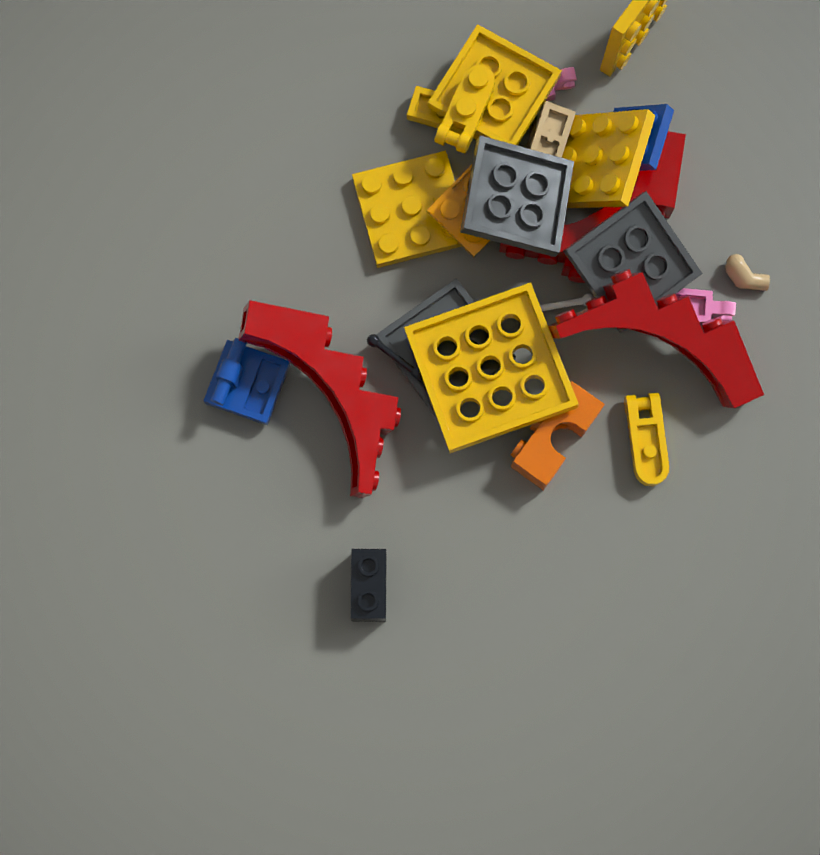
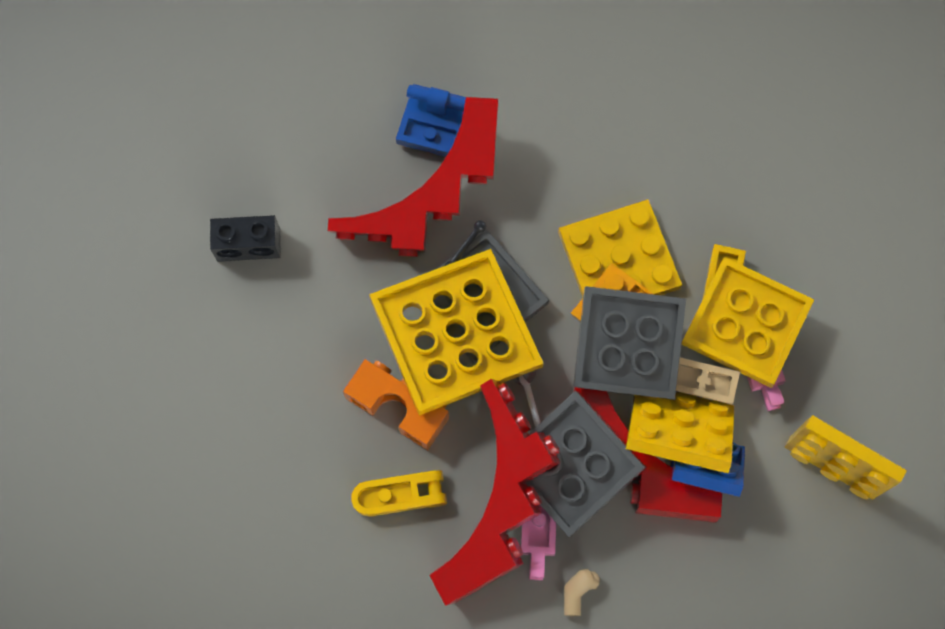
camera: 90 degrees right, 5 degrees down
(466, 108) = (719, 291): yellow plate -> none

